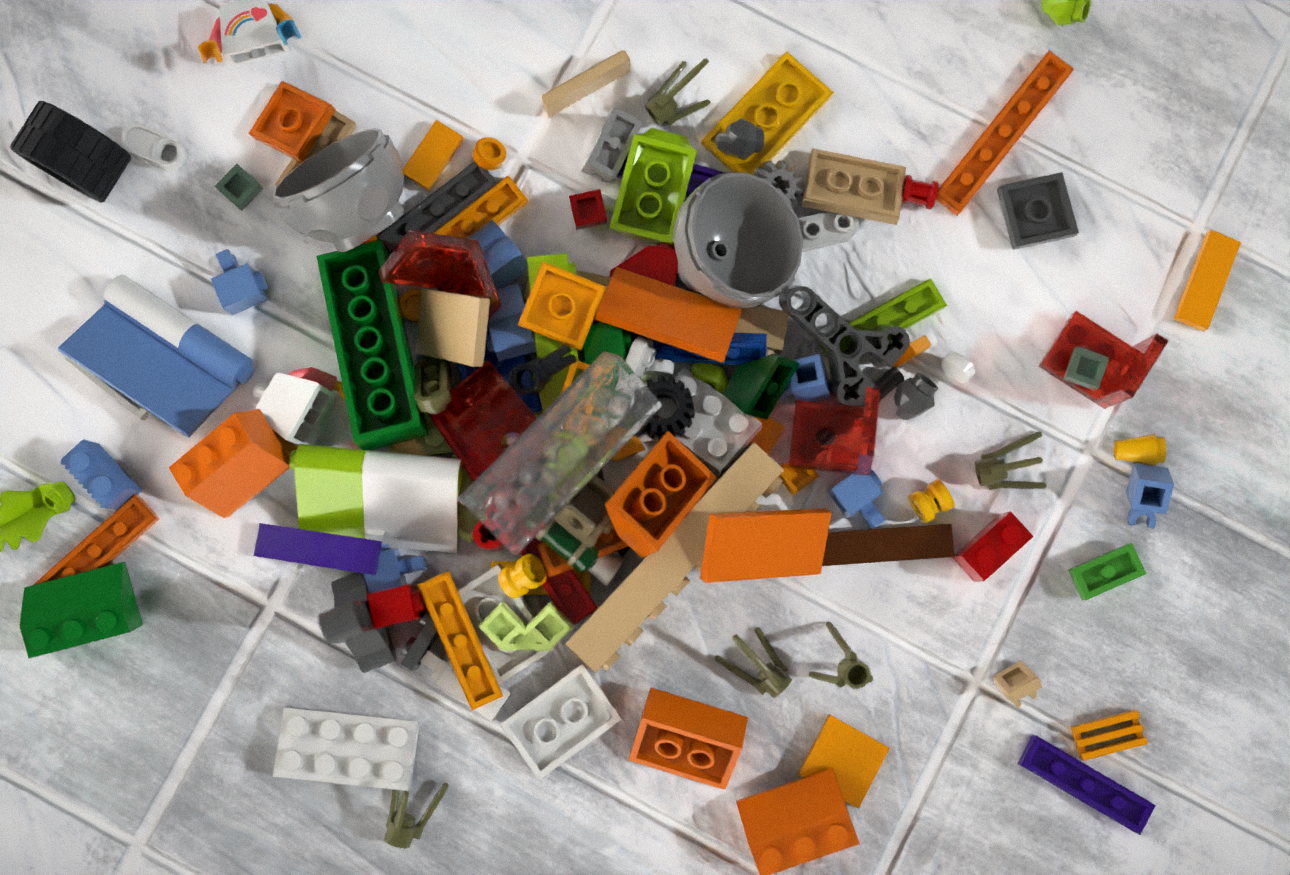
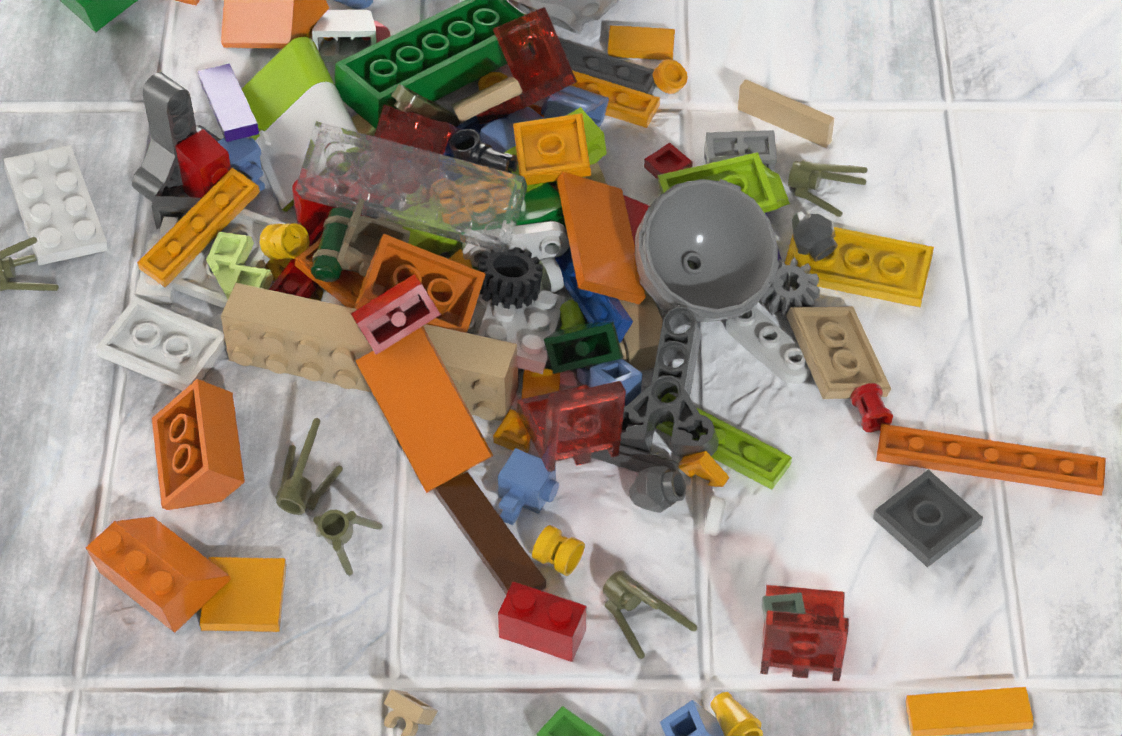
camera: 65 degrees right, 30 degrees down
(698, 534) = (395, 314): none -> brick

